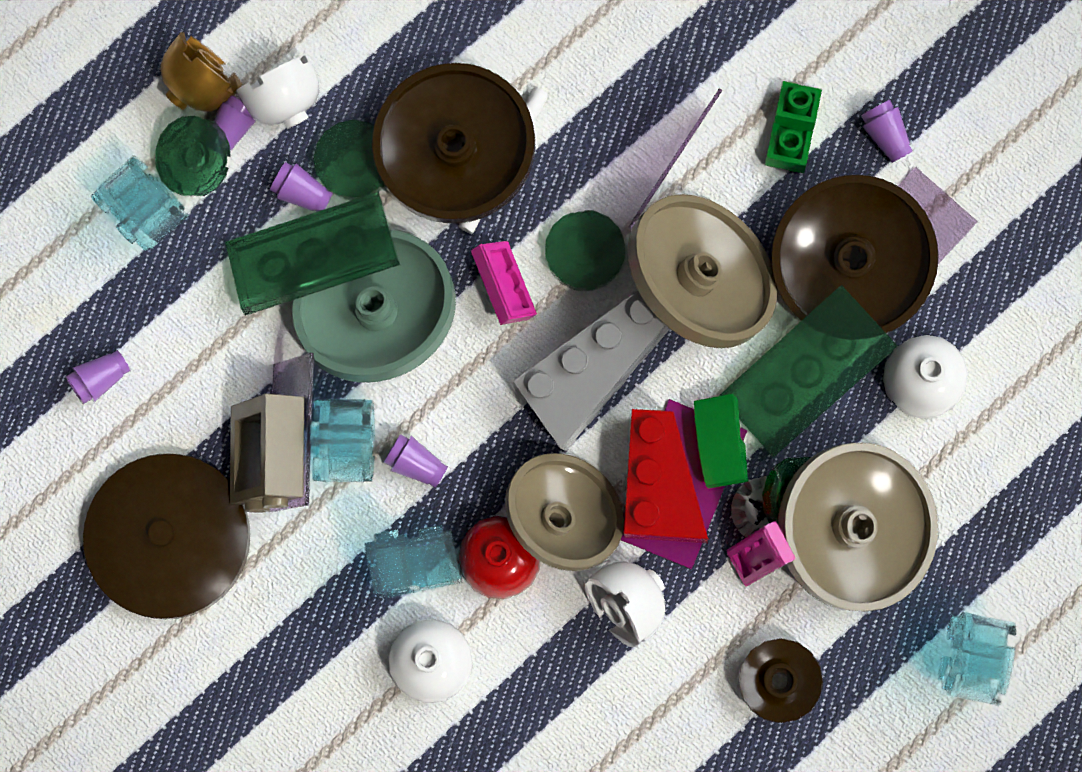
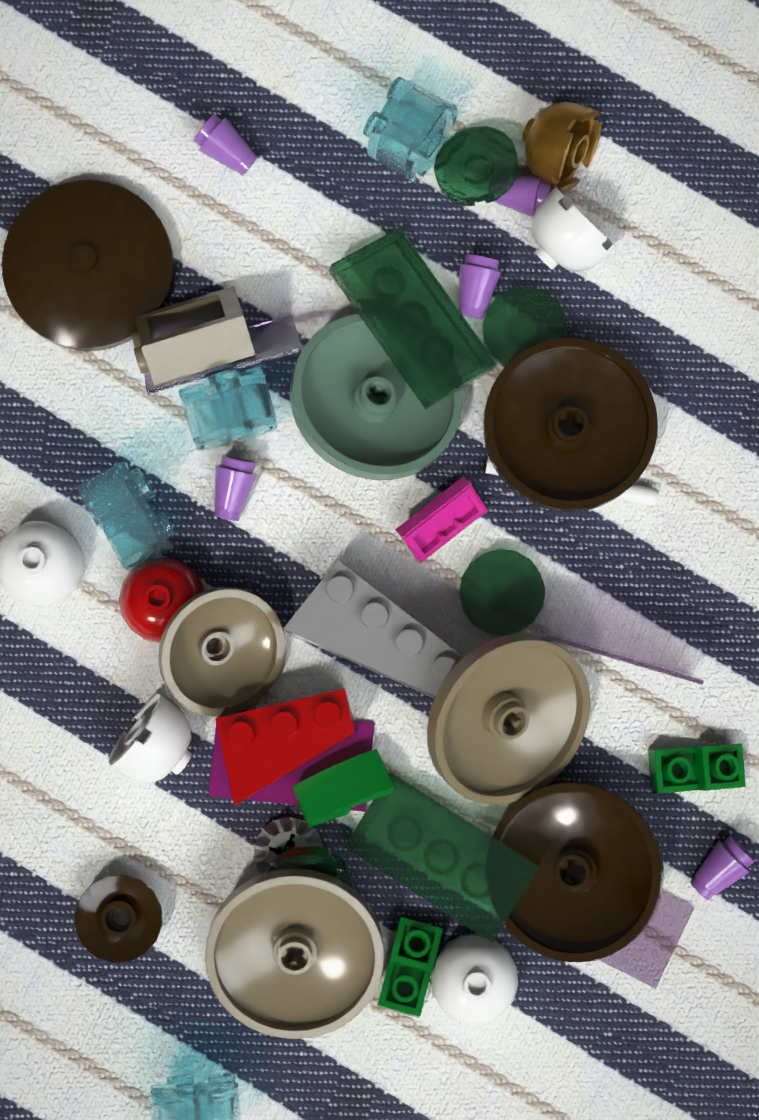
camera: 65 degrees right, 5 degrees up
(760, 554) = (236, 862): dark pink plate -> none
(898, 430) = (409, 967): none -> green slope

